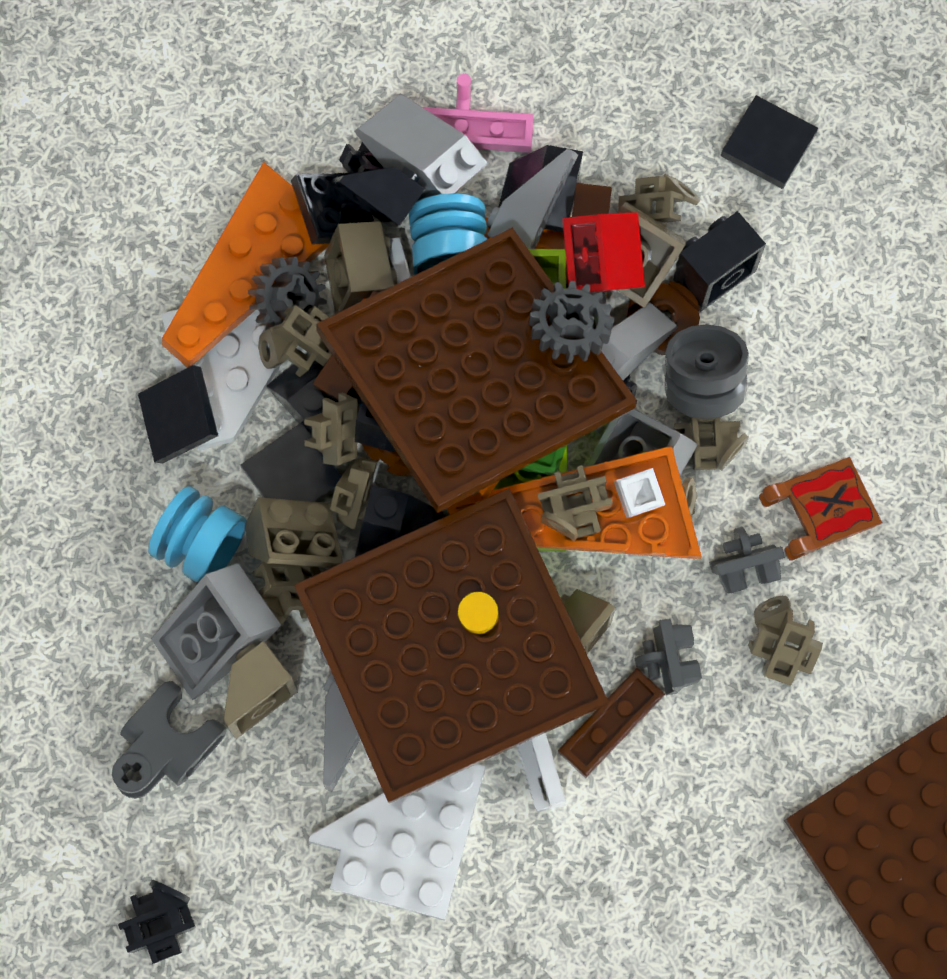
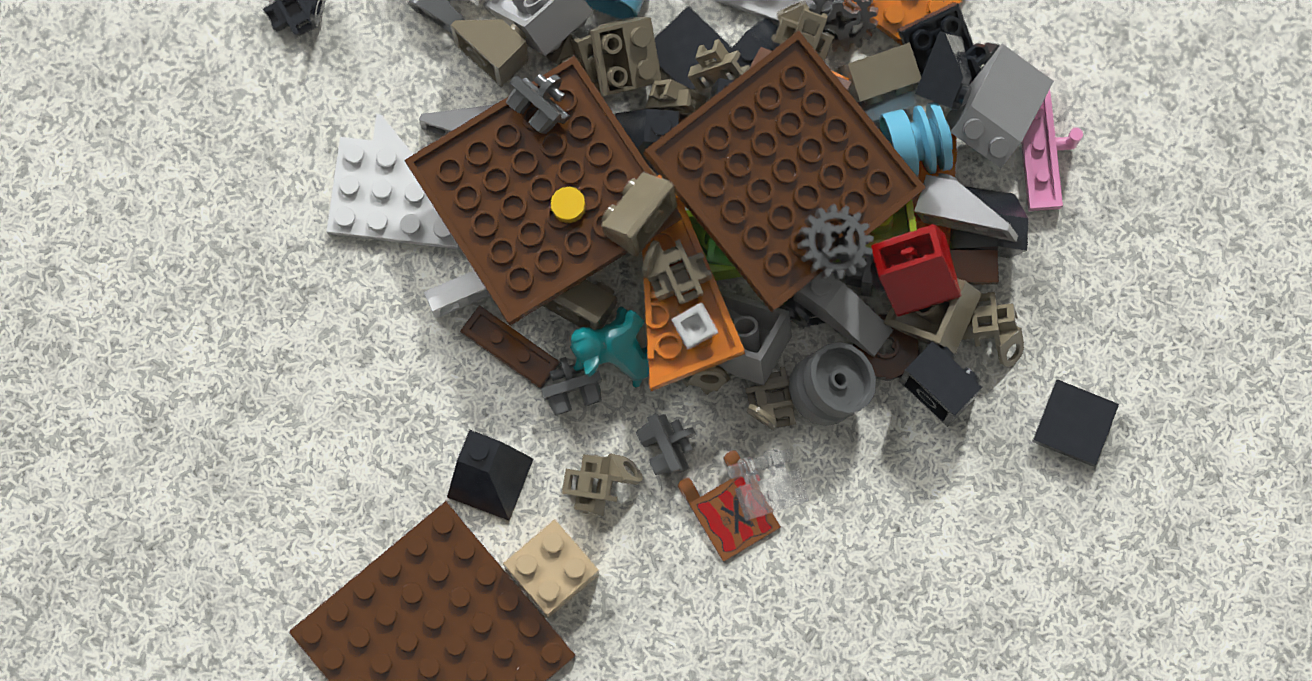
camera: 80 degrees right, 5 degrees up
(334, 641) = (548, 111): none -> dark grey hips
(506, 527) = (639, 213): none -> dark tan slope
(635, 589) = (612, 344): none -> teal animal
(761, 766) = (489, 475): none -> black slope
(817, 458) = (770, 494): none -> clear plate
(879, 707) = (551, 568): none -> tan brick

